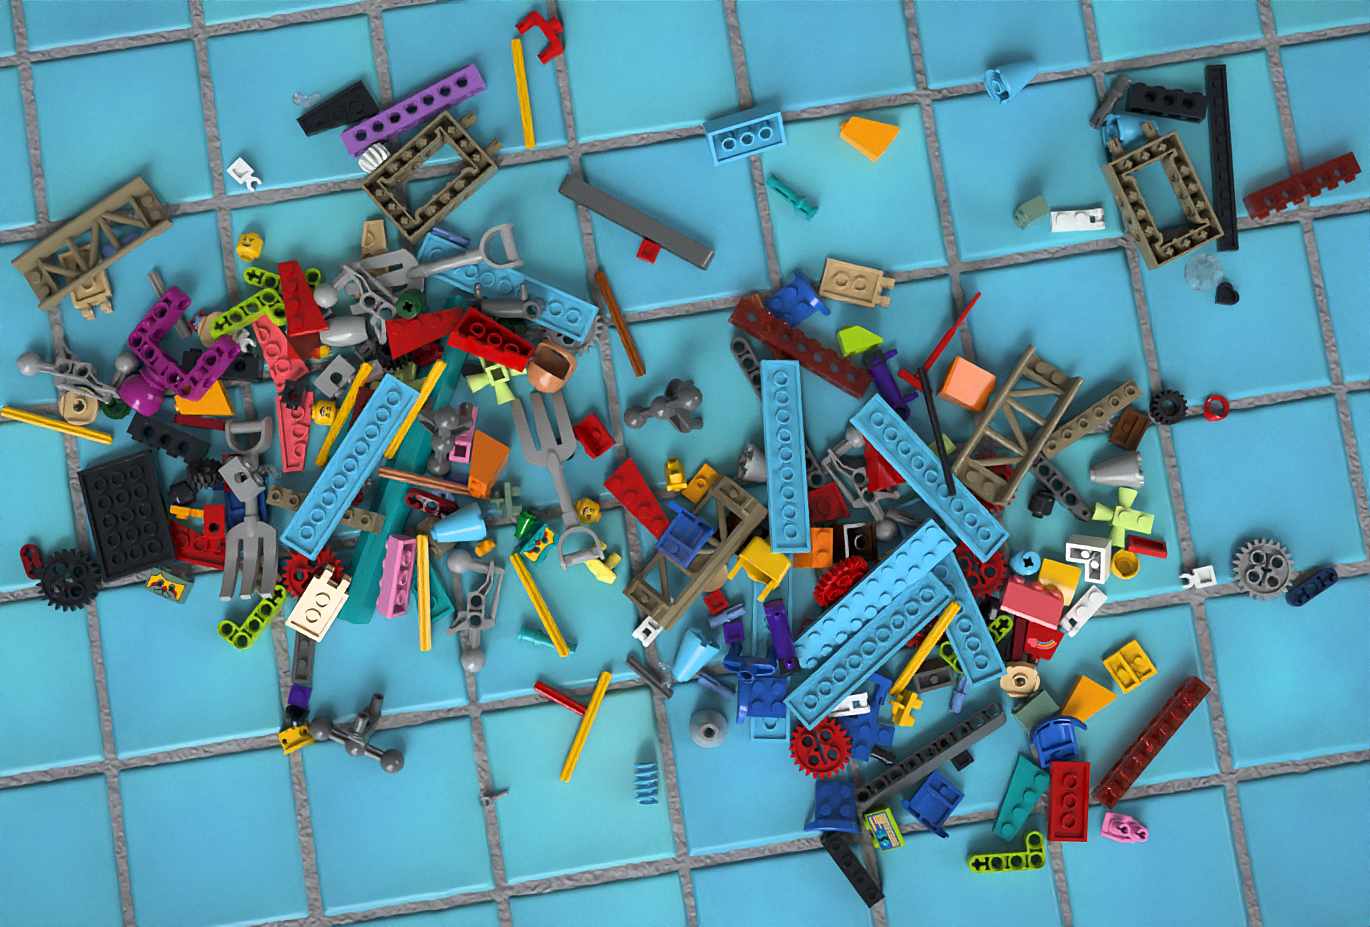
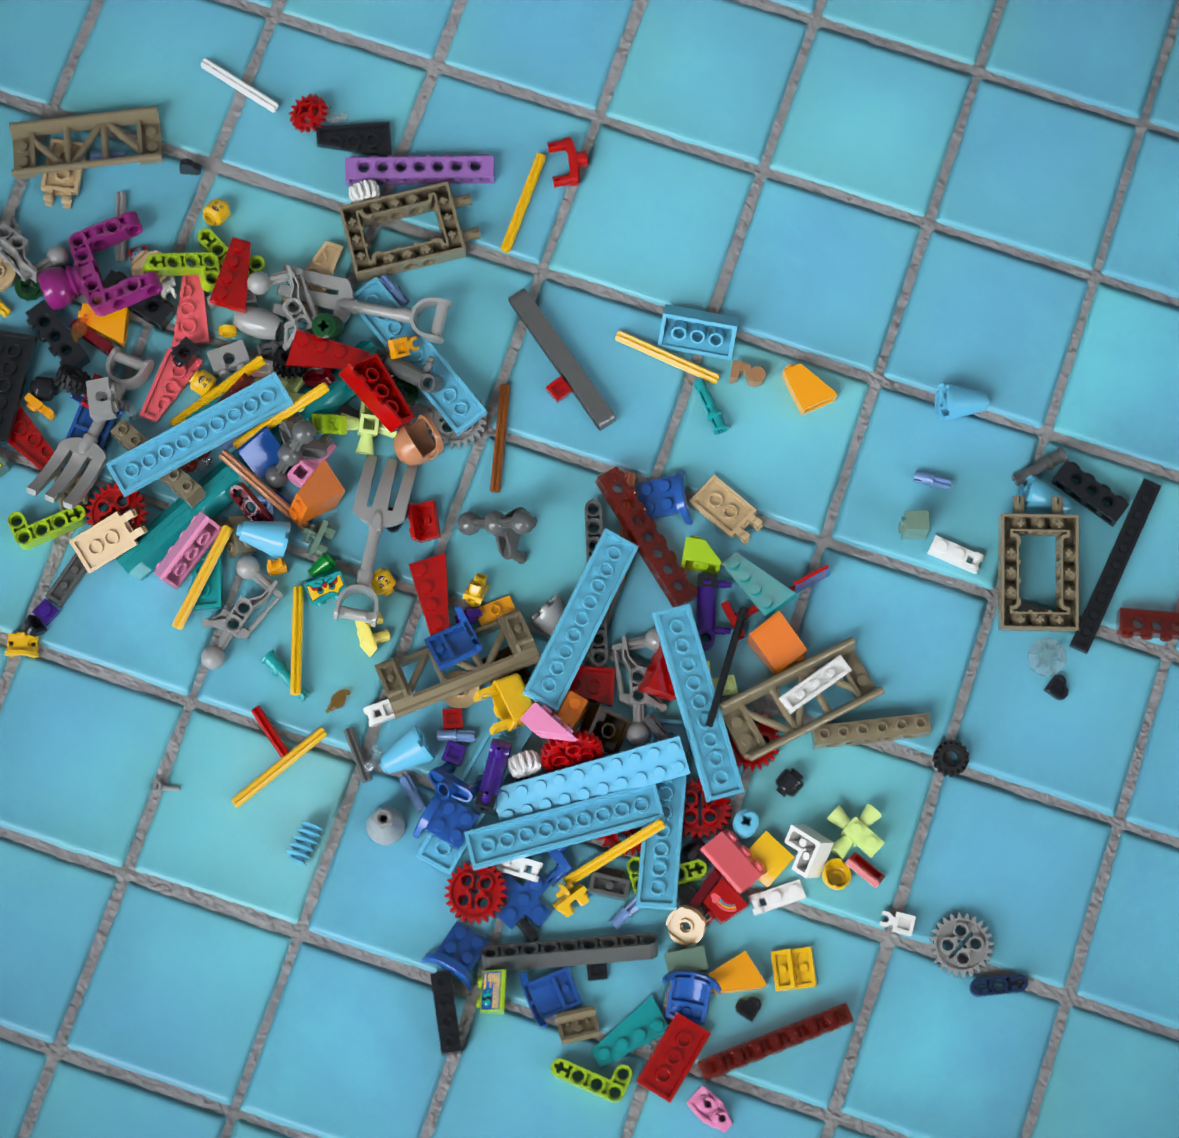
camera: 25 degrees right, 10 degrees down
(184, 421) = (79, 328): none -> clear orange piece
(200, 217) = (189, 167): none -> black tile
(204, 115) = (239, 85): none -> white axle
(215, 519) = (56, 428): red torso -> none
(242, 173) = (245, 148): white plate -> none
(282, 110) = (308, 113): none -> red gear
(303, 346) = (216, 317): clear red piece -> none
(357, 739) = (81, 666): dark grey connector -> none
(413, 451) = (260, 452): none -> blue tile
(461, 392) = (329, 423): none -> lime slope
(488, 289) = (401, 346): none -> light orange plate
(604, 638) = (338, 700): none -> clear orange piece
(682, 501) = (471, 615): none -> dark purple plate
(729, 171) = (667, 357): none -> yellow axle
(803, 611) = (524, 764): none -> white gear
(807, 571) = (545, 725): none -> bright pink slope
(815, 150) = (754, 376): none -> medium nougat leg
(925, 341) = (759, 587): none -> teal wing
(971, 816) = (577, 1025): none -> dark tan bracket
(1021, 405) = (815, 684): none -> white tile
(1022, 163) = (932, 480): none -> medium blue axle
(1077, 506) = (819, 802): dark grey piece -> none
(1109, 721) = (748, 1008): none -> black tile
(1119, 471) = (875, 790): light grey cone -> none
(1129, 429) = (904, 760): reddish brown plate -> none
(1211, 417) = (985, 787): red piece -> none

